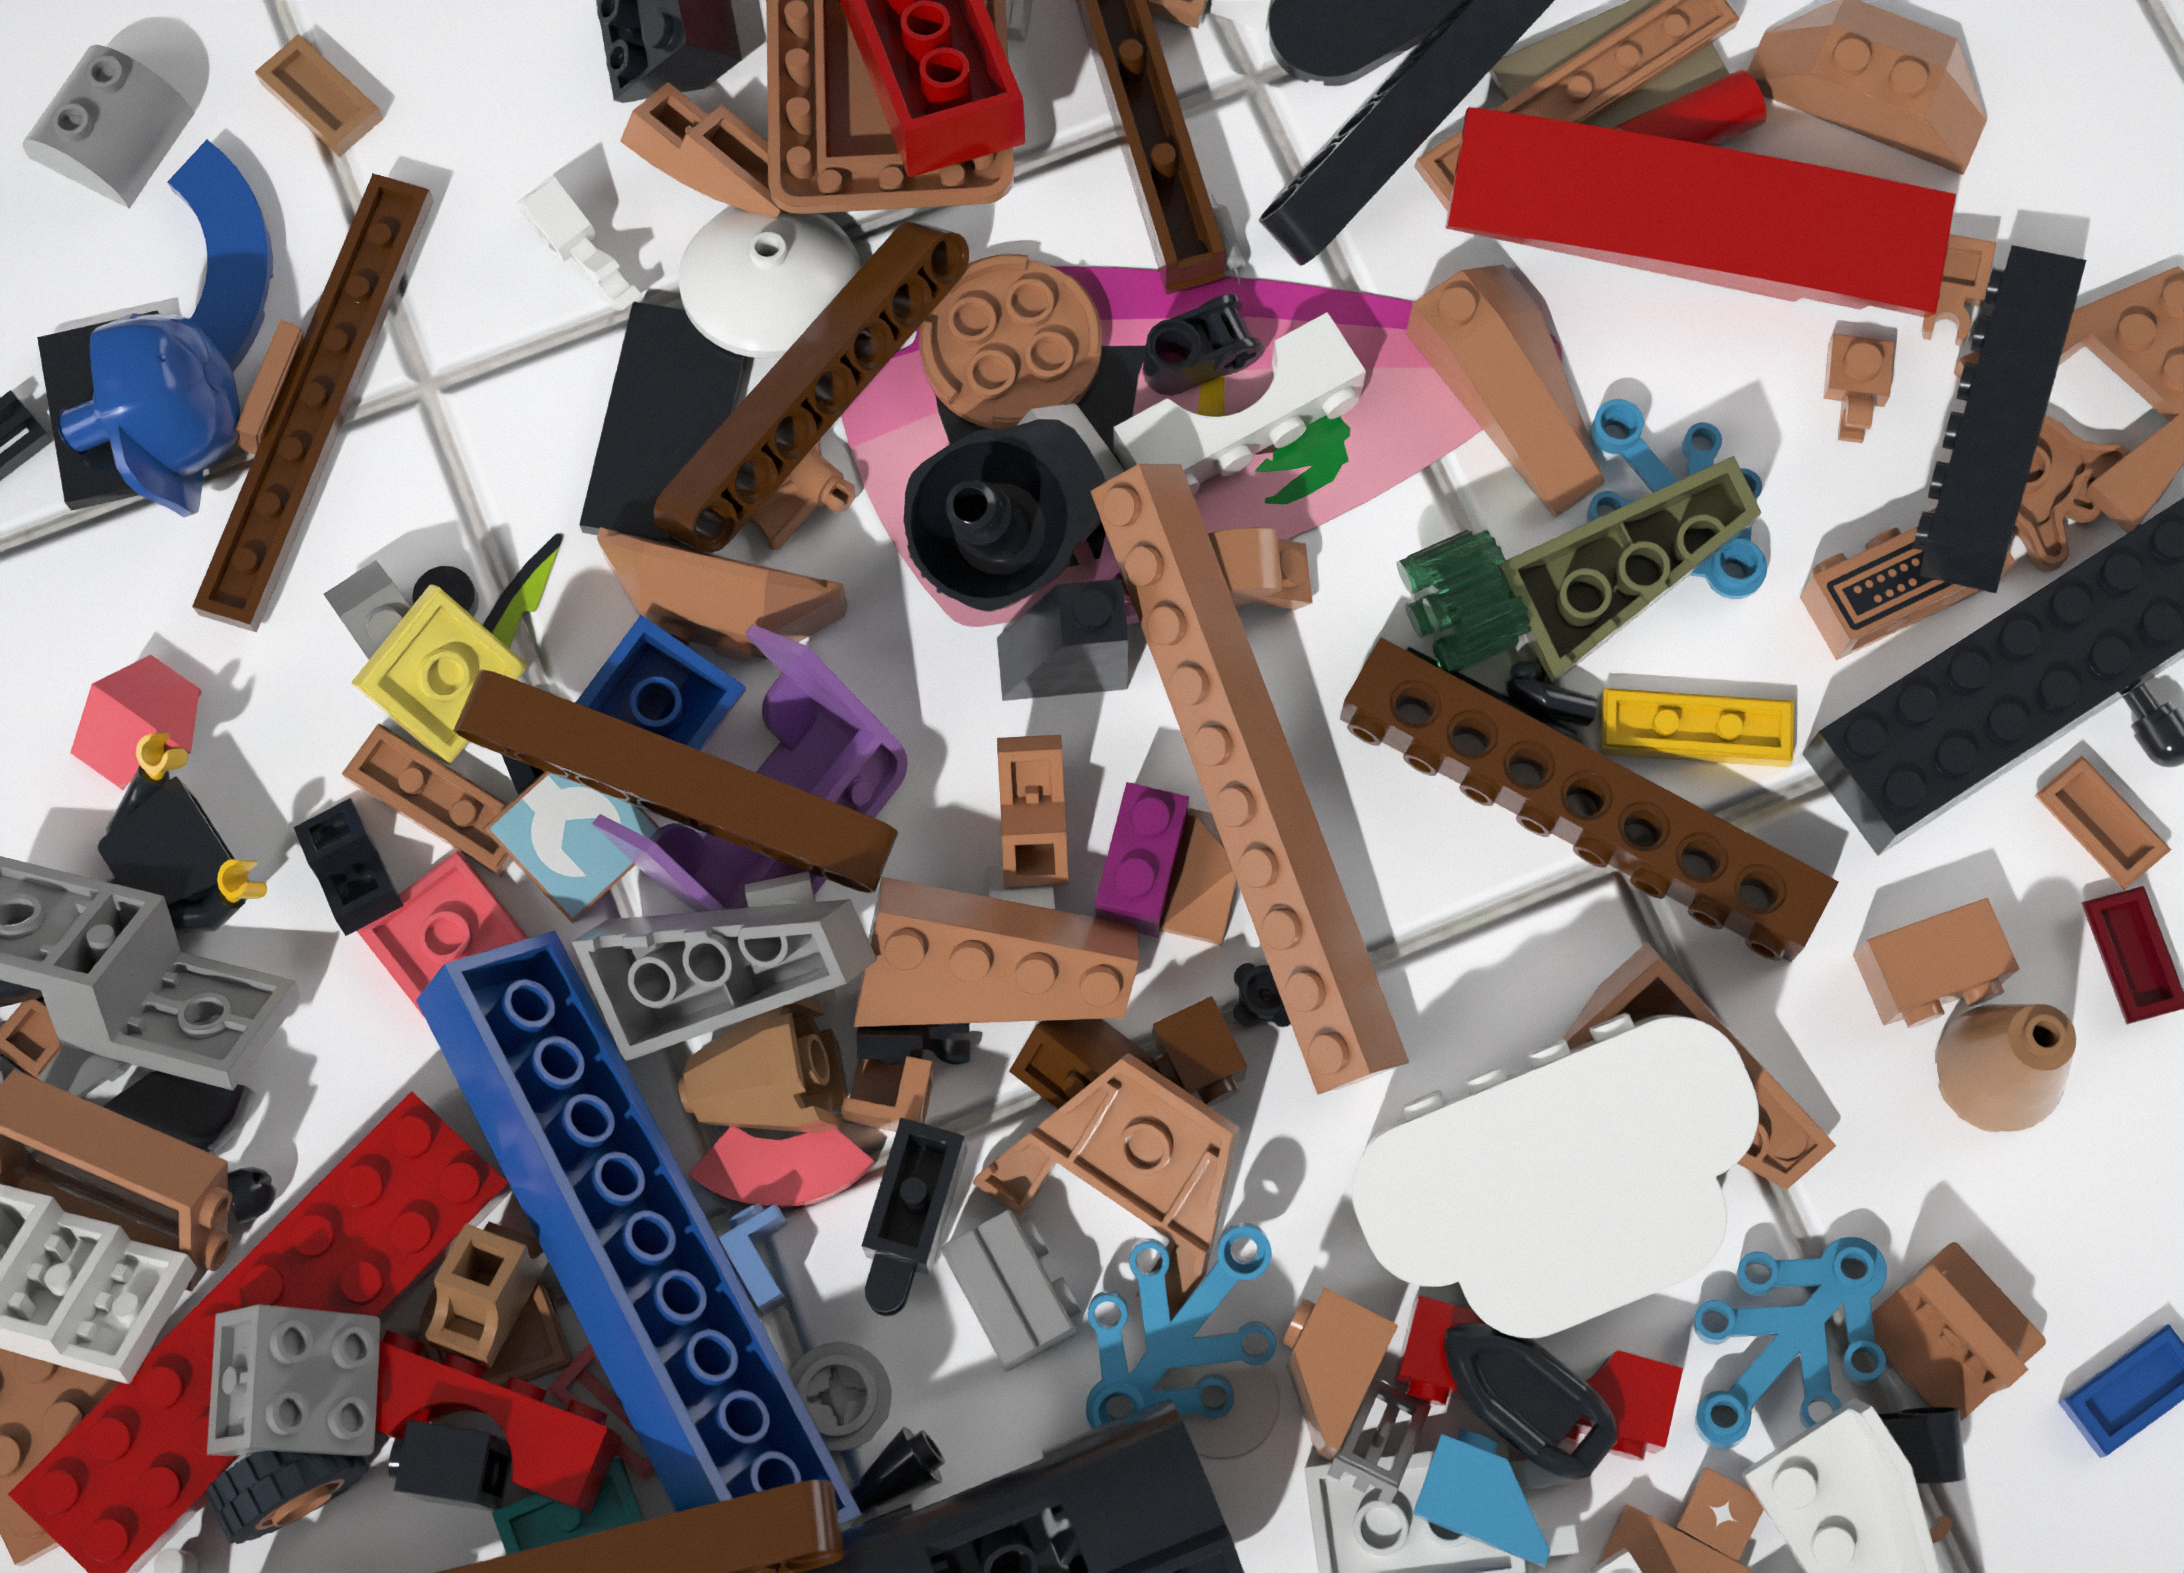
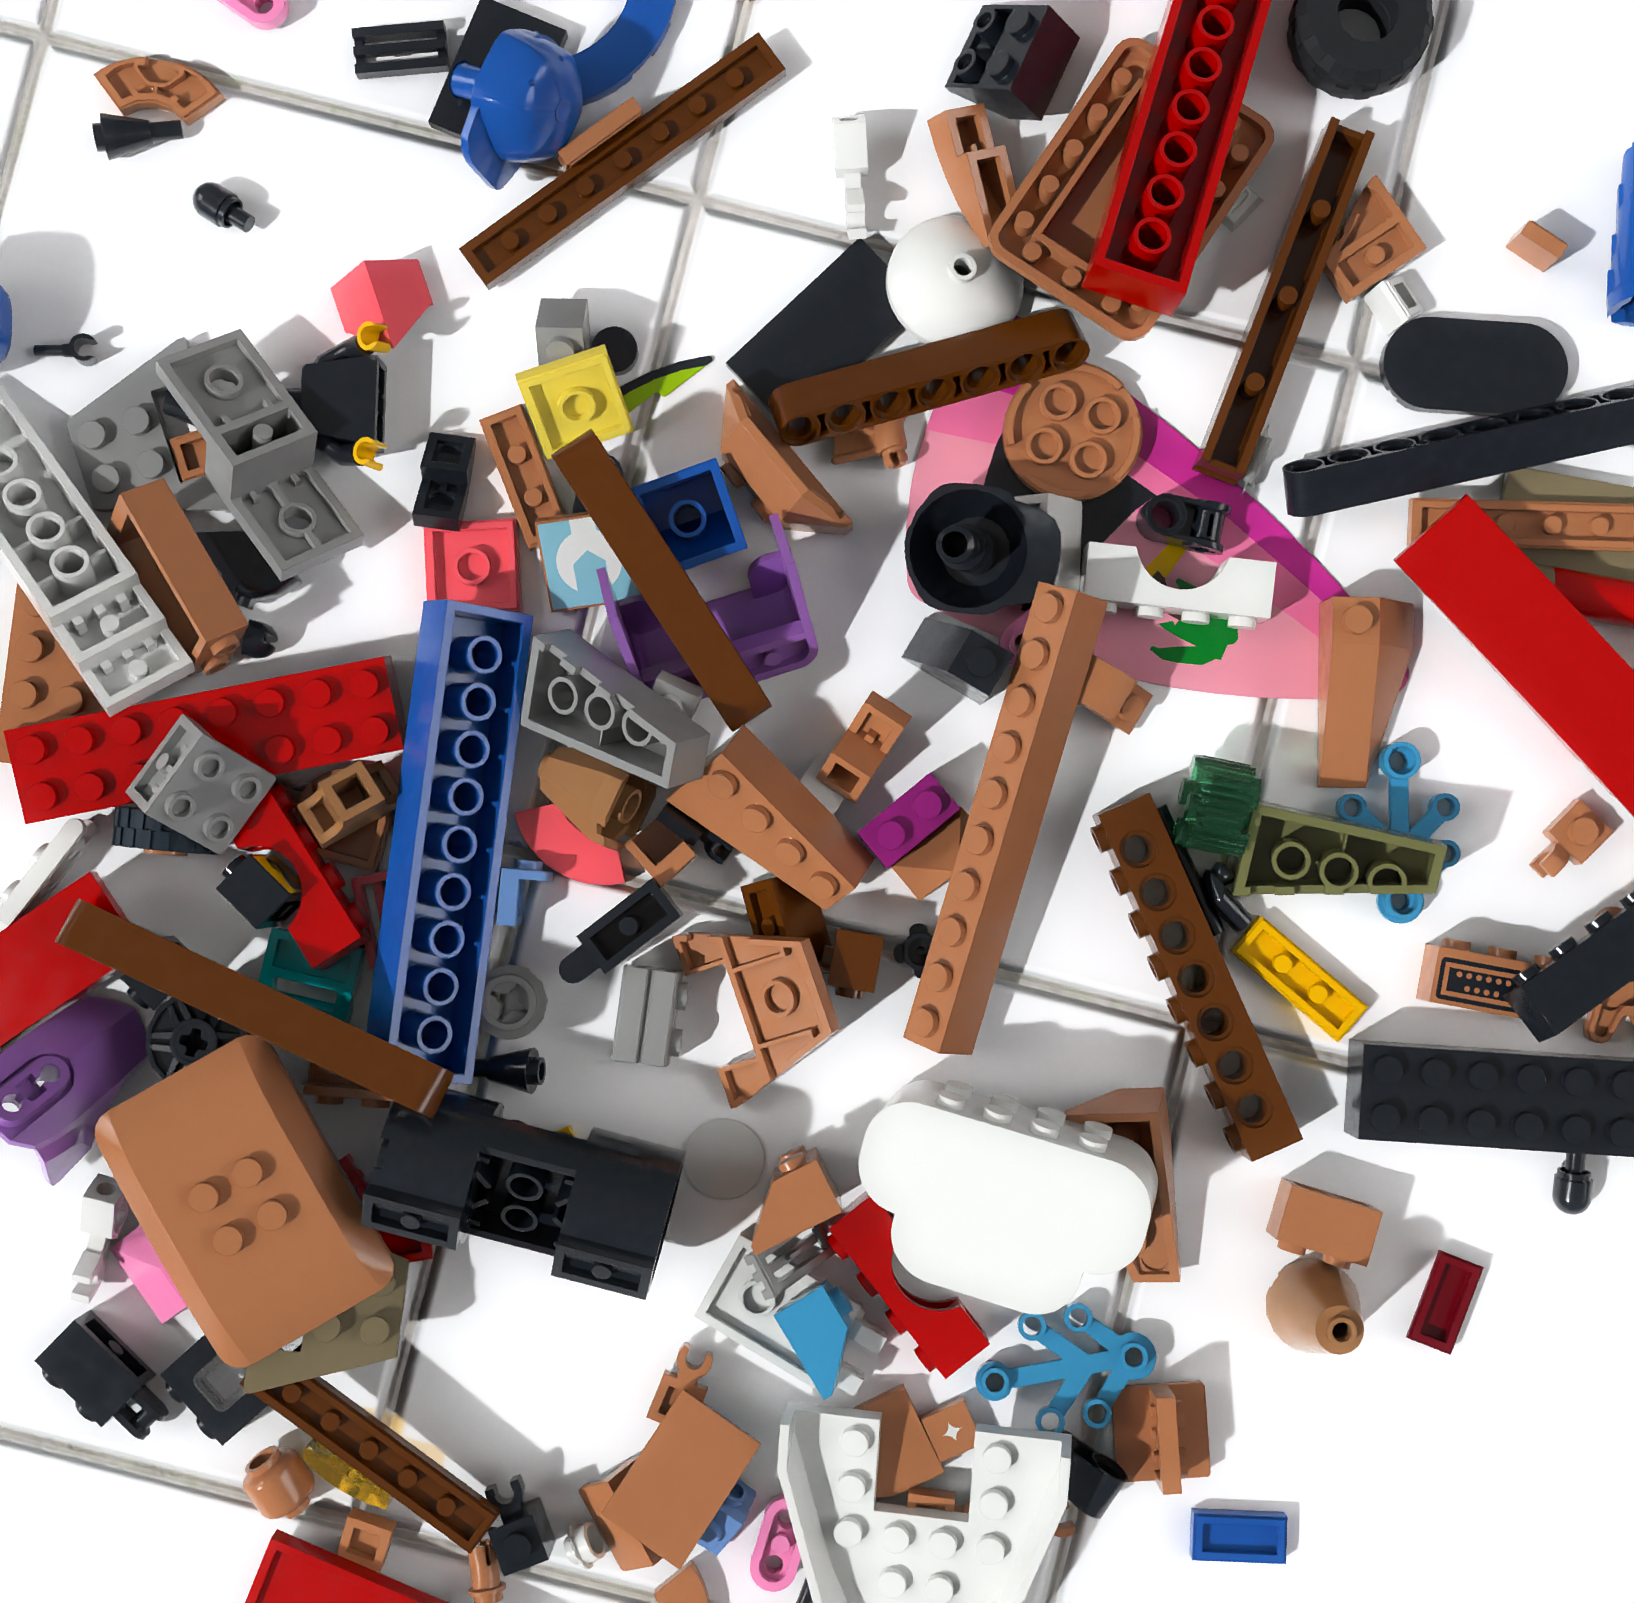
camera: 35 degrees right, 15 degrees up
(1173, 1342) = (719, 1114): dark azure plant -> none
(1529, 1398) = (888, 1301): black piece -> none
(2103, 822) = (1491, 1213): nougat tile -> none

